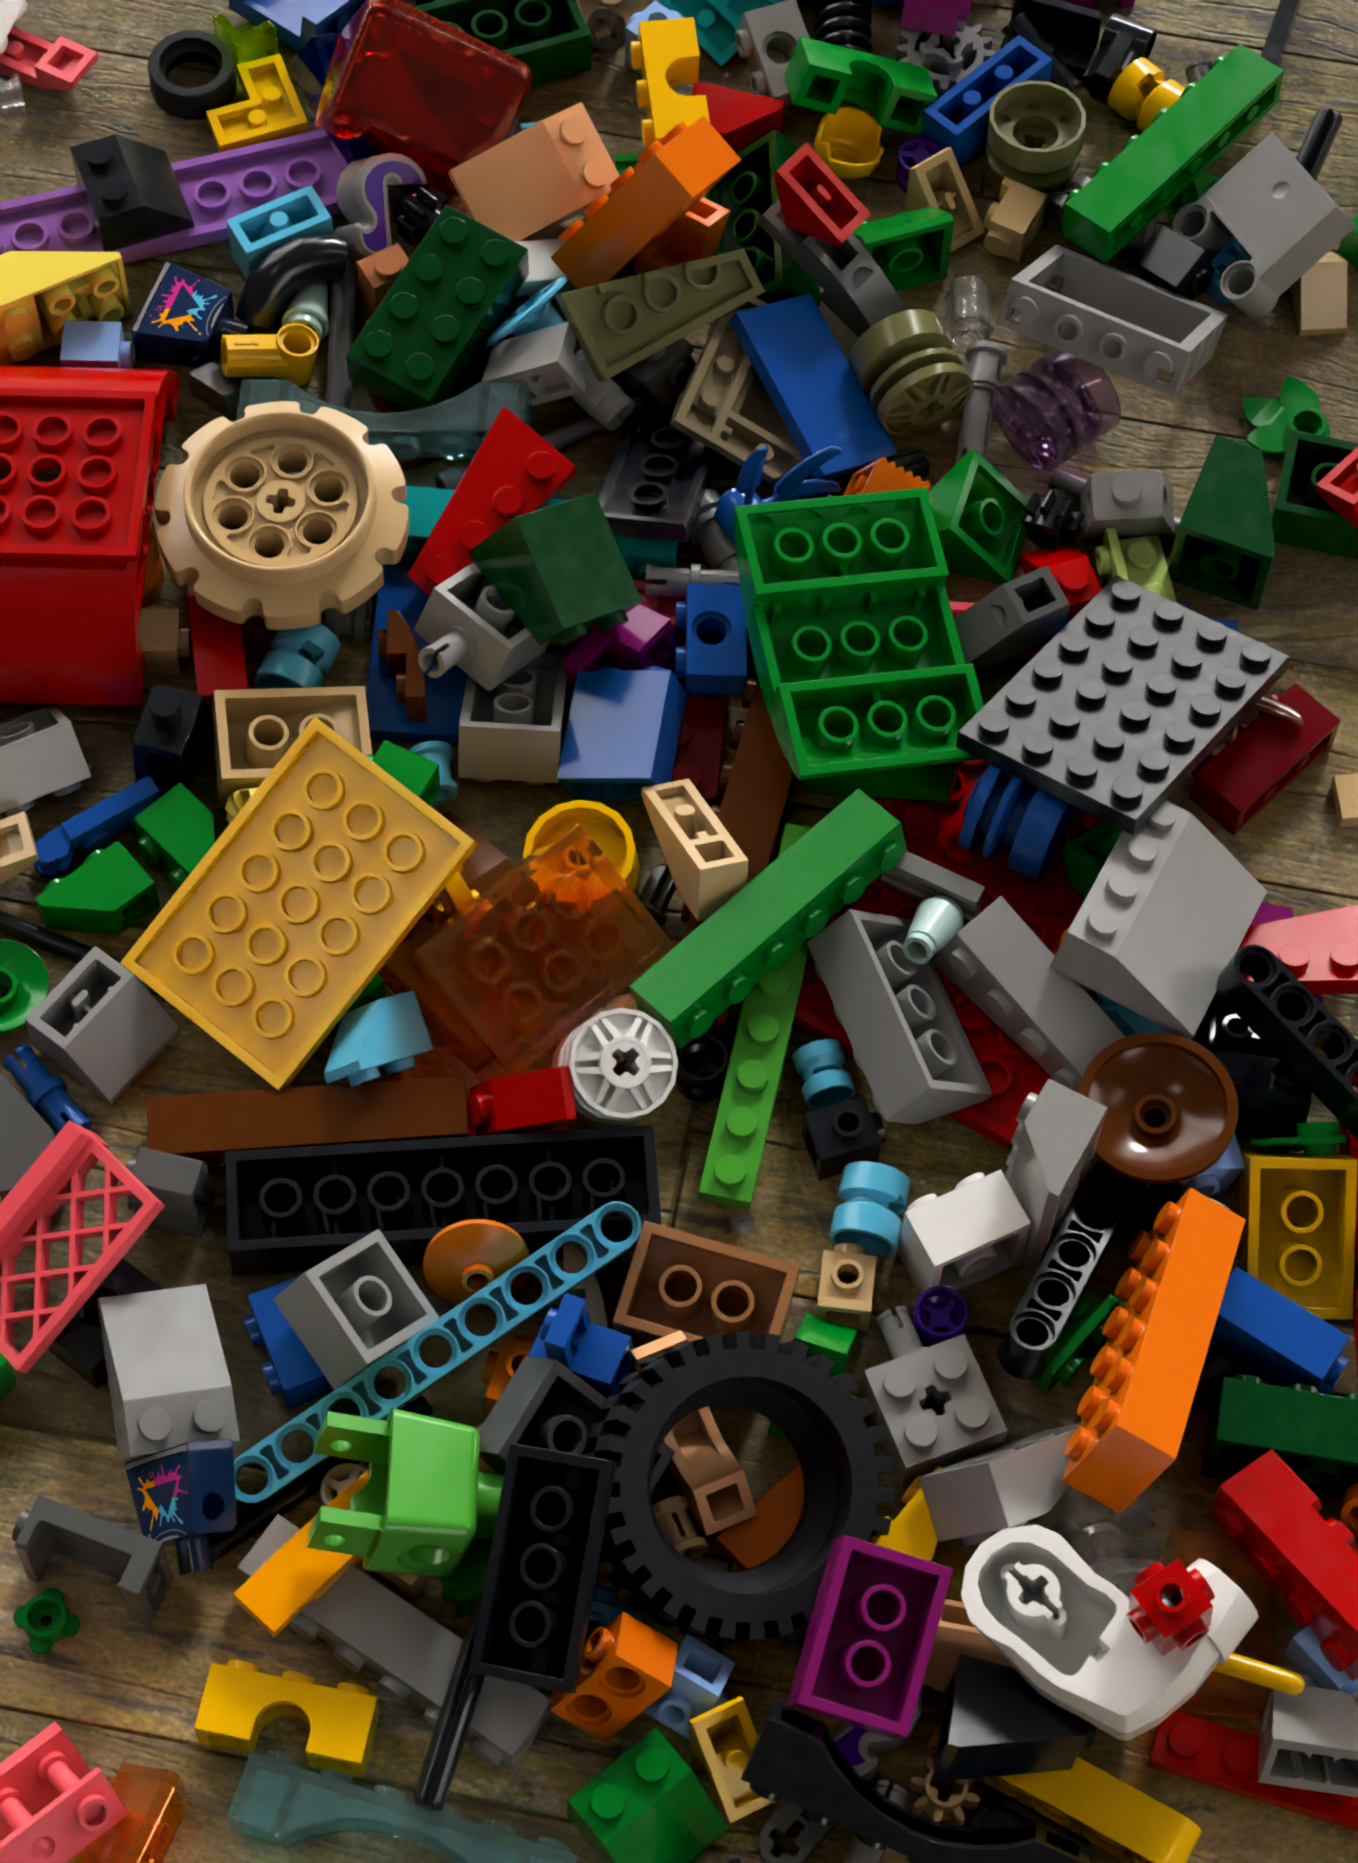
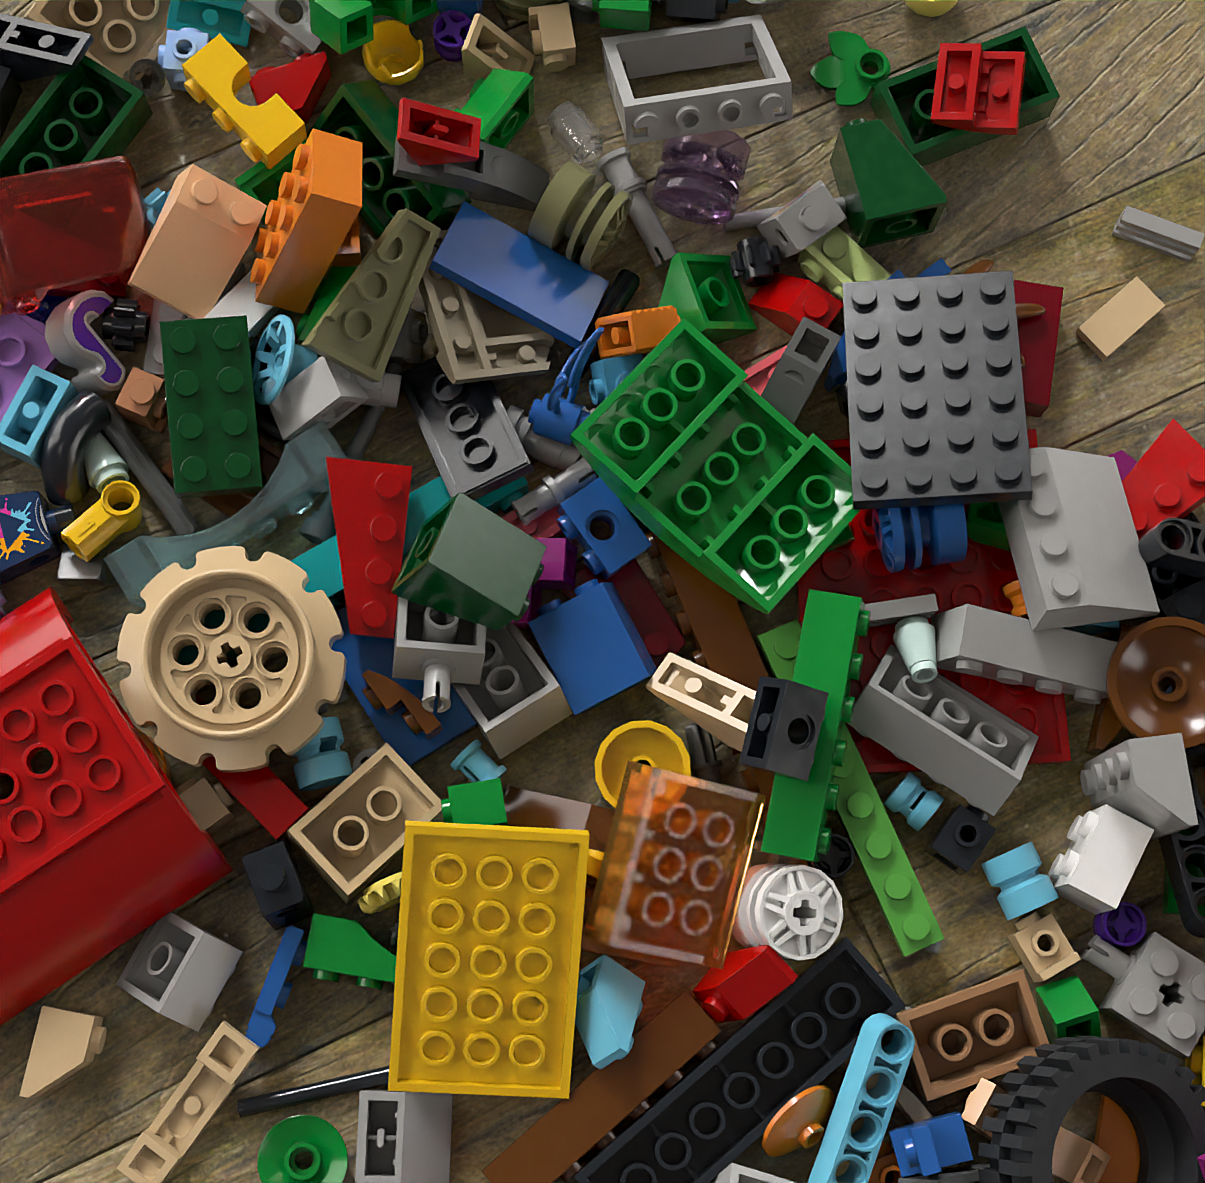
camera: 40 degrees left, 15 degrees up
(99, 896) = (321, 1034): green slope -> none
(702, 881) = (783, 728): none -> black brick

